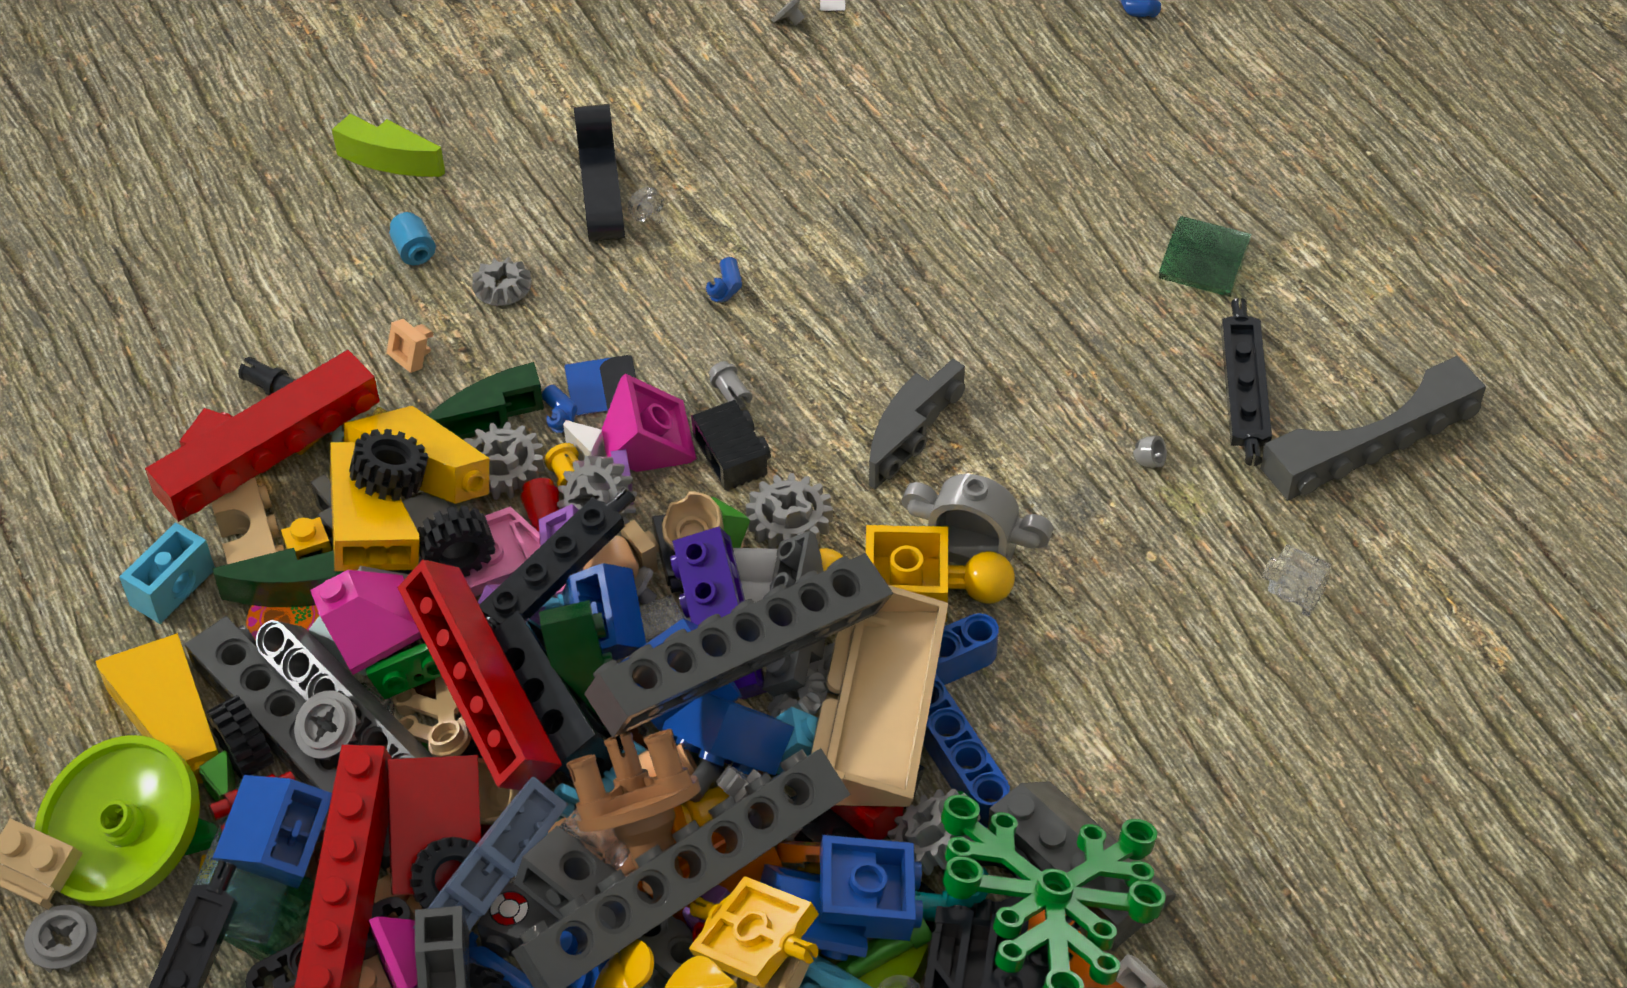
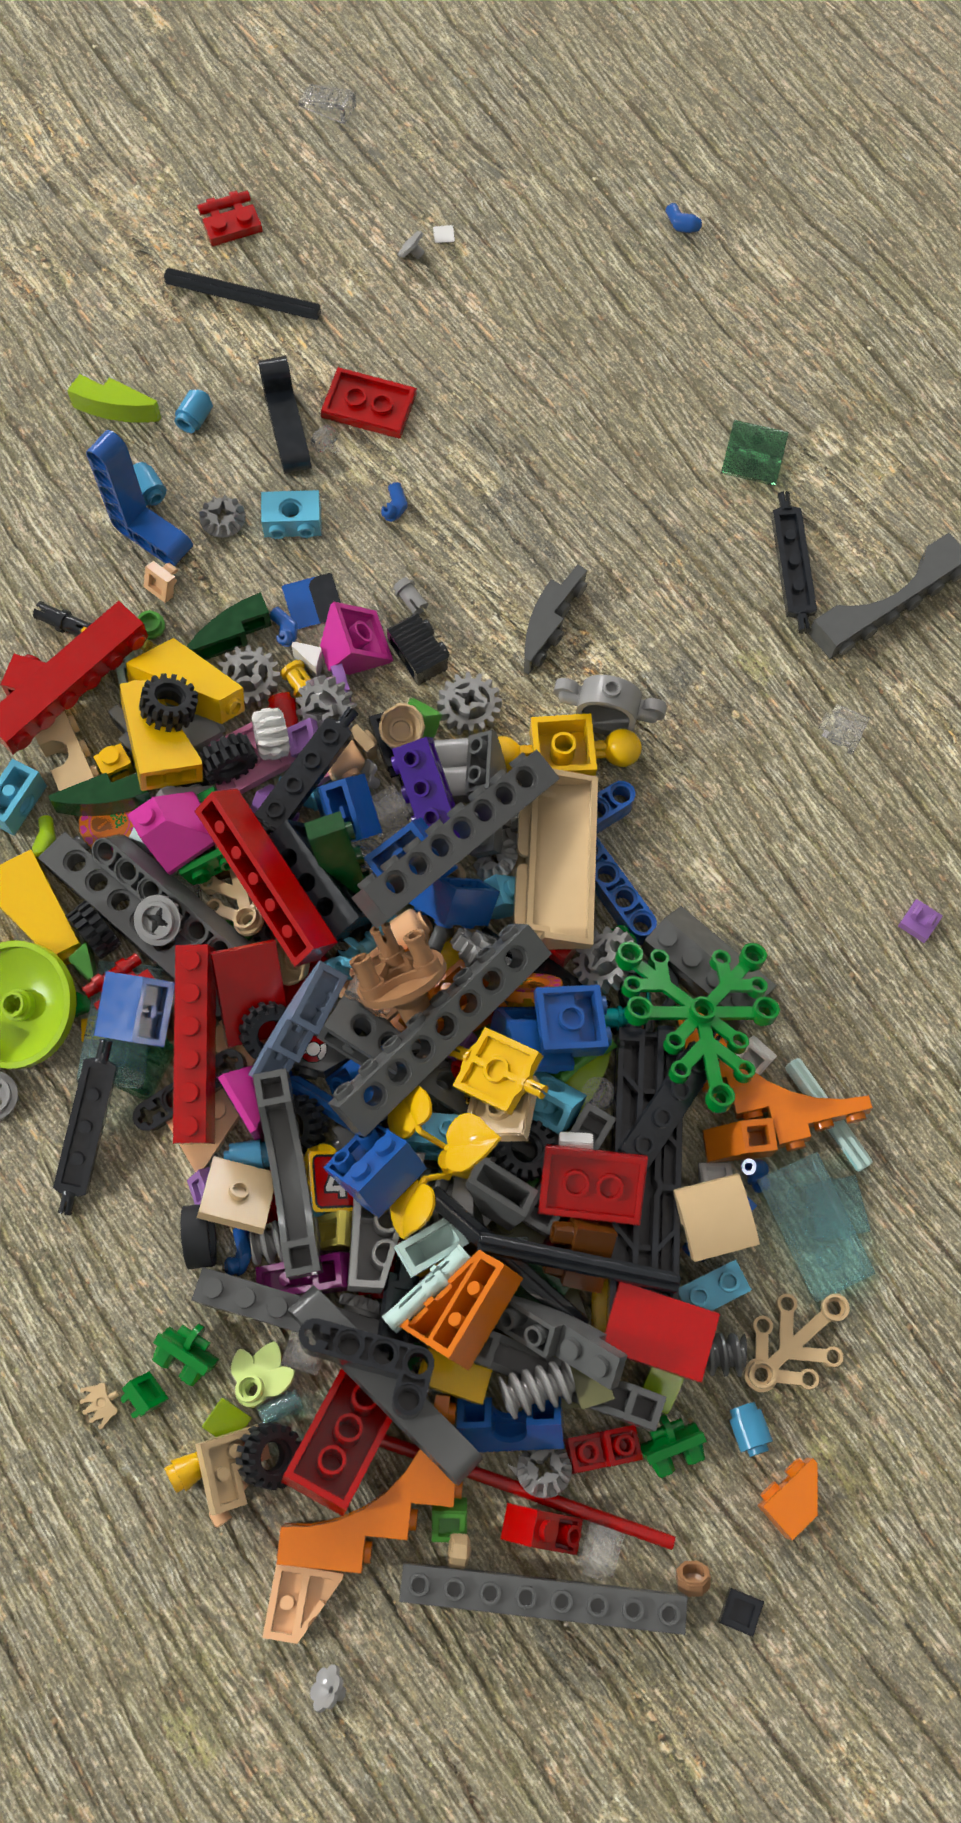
camera: 10 degrees left, 20 degrees up
(203, 618) = (45, 836): none -> lime arm
(378, 242) = (126, 505): none -> blue beam
(390, 393) = (153, 623): none -> bright green plate
(485, 164) = (193, 411): none -> dark azure brick
(517, 518) = (270, 733): none -> white gear
(570, 48) = (242, 293): none -> black axle
(589, 282) = (280, 504): none -> medium azure brick
(710, 172) = (368, 402): none -> red tile
(1150, 452) = (729, 628): light grey hinge -> none
(1389, 828) = (920, 921): none -> medium lavender tile

